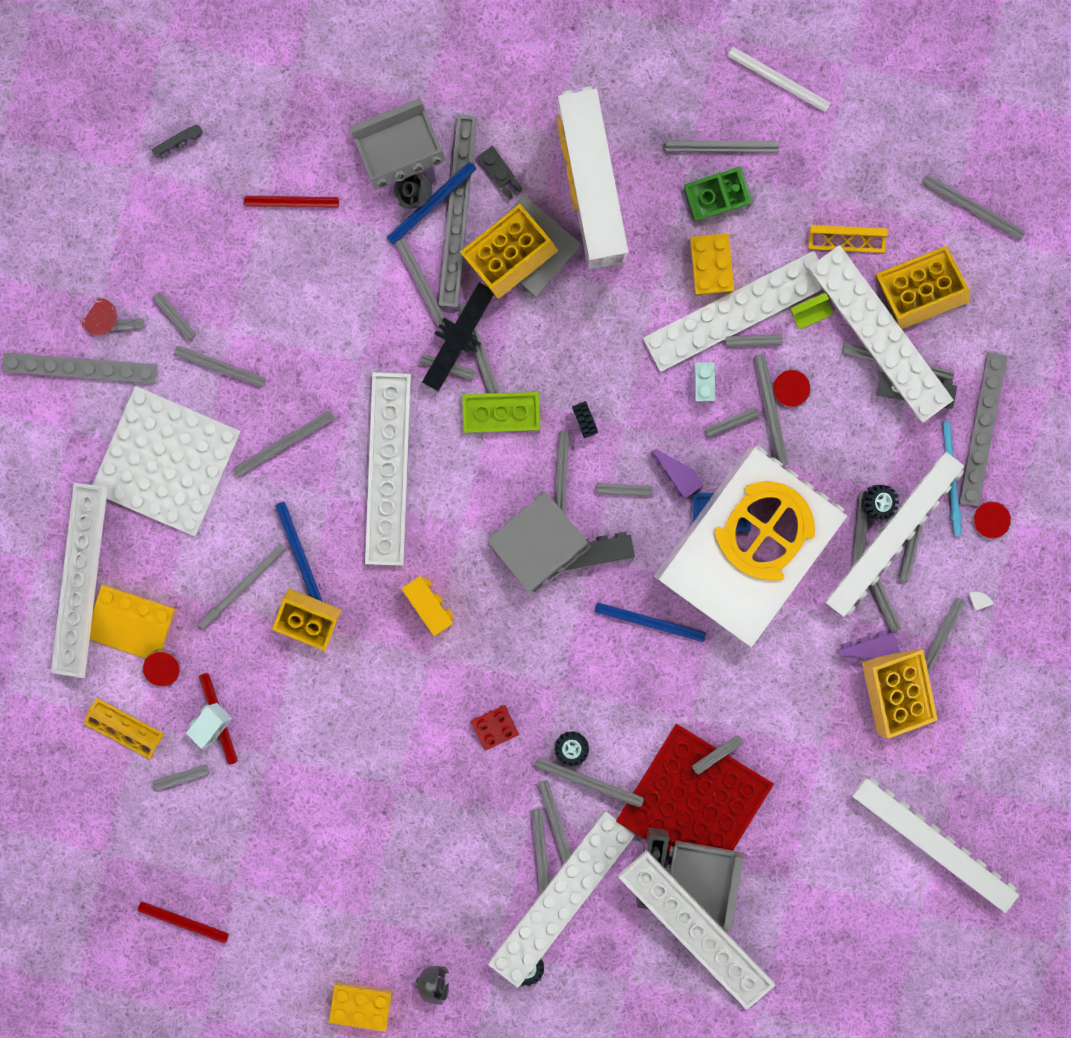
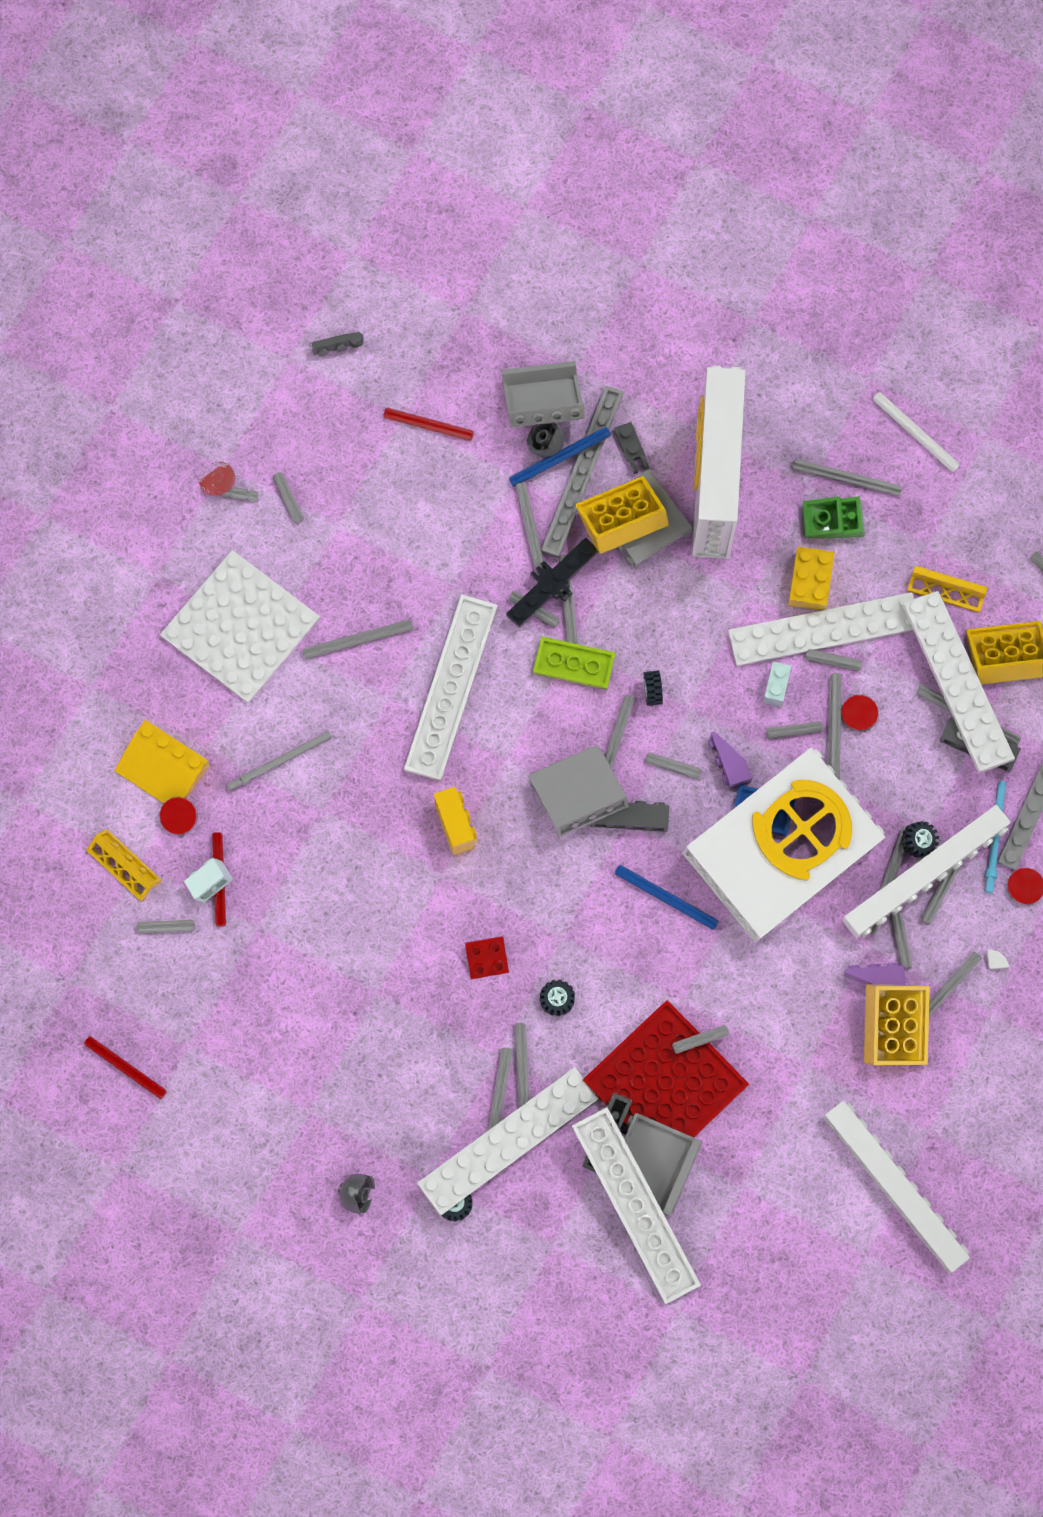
camera: 15 degrees right, 15 degrees down
(79, 368) = (185, 521): light grey plate -> none
(79, 580) = (124, 712): white plate -> none
(220, 366) = (317, 553): light grey axle -> none
(298, 551) = (343, 749): blue axle -> none
(306, 619) = (333, 804): yellow brick -> none
(360, 1006) = (277, 1195): yellow brick -> none
(589, 782) = (566, 1034): light grey axle -> none
(811, 311) = (896, 646): lime panel -> none

